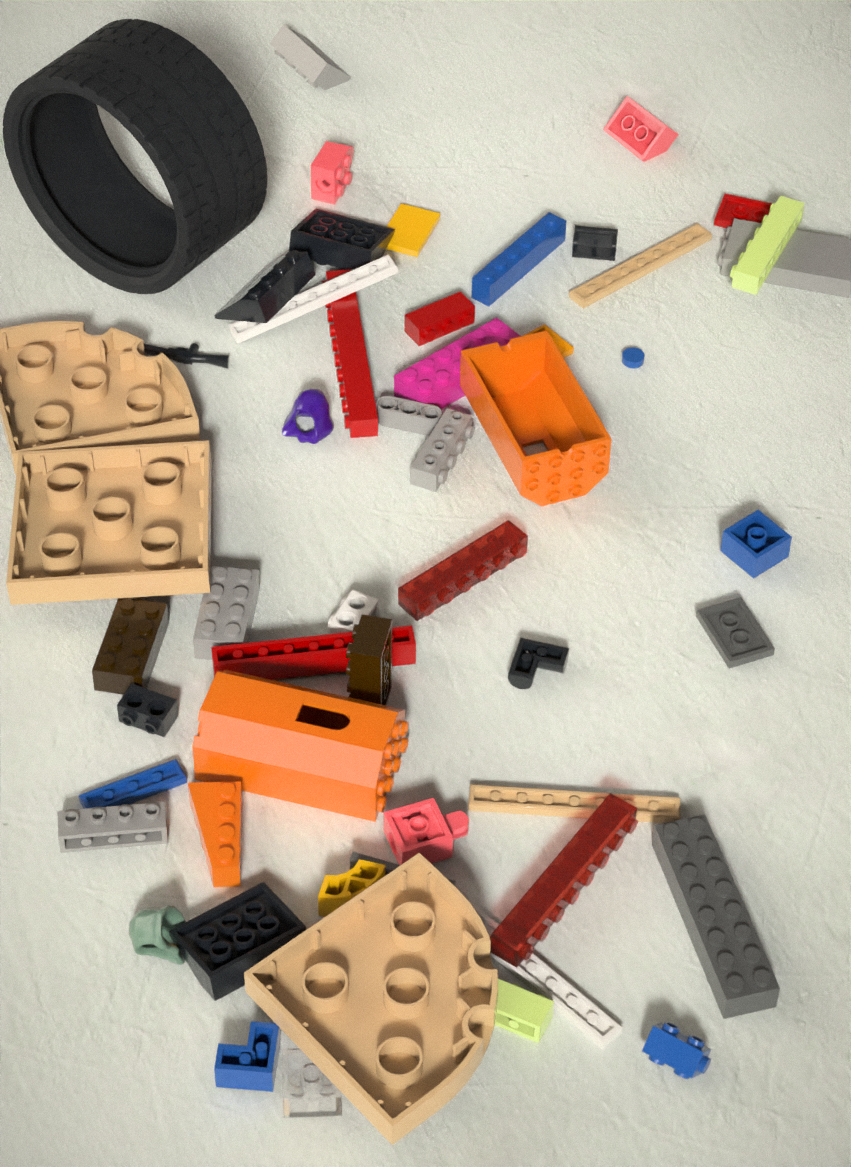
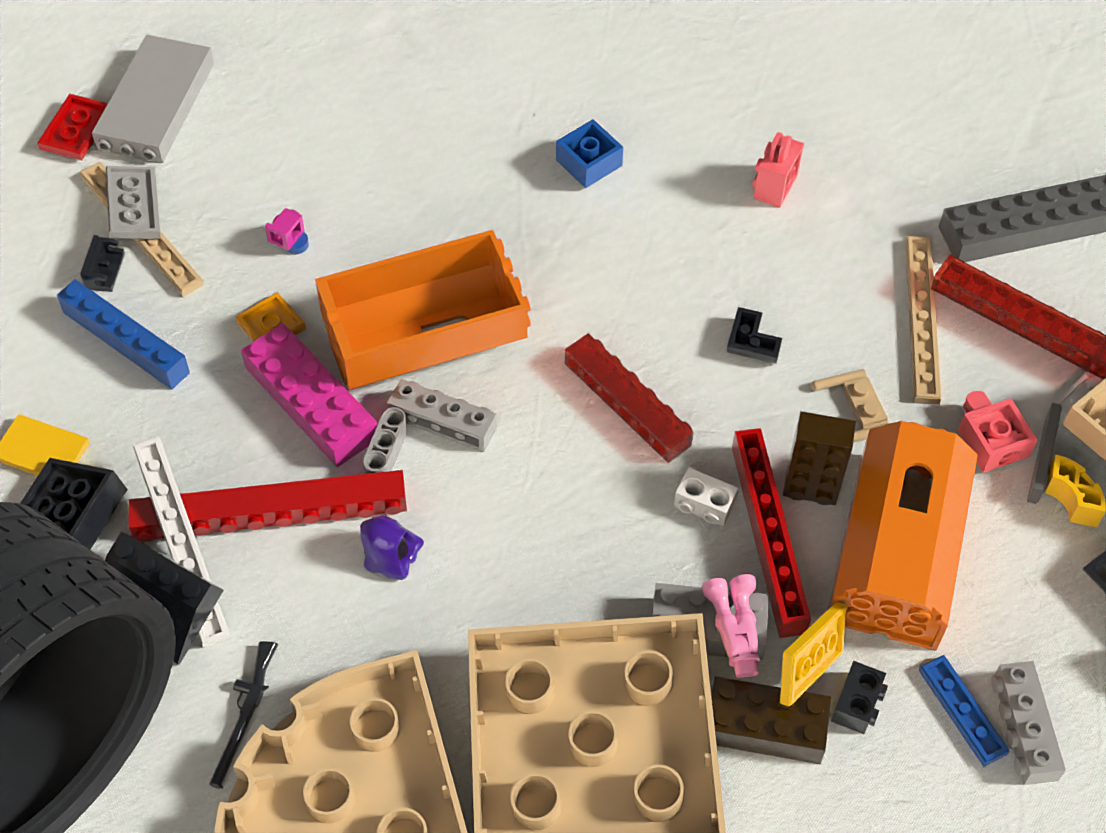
camera: 90 degrees left, 10 degrees up
(174, 655) = (812, 653): none -> yellow tile
(206, 607) = (737, 630): none -> bright pink piece
(219, 824) = (1016, 613): orange wedge -> none
(439, 318) = (220, 414): red brick -> none
(464, 746) = (861, 399): none -> tan plate
(637, 341) = (285, 229): none -> dark pink brick
(662, 252) = (132, 202): none -> light grey tile
(735, 632) = (698, 182): dark grey plate -> none
(747, 682) = (777, 169): none -> coral brick
(767, 245) = (153, 101): yellowish green brick -> none

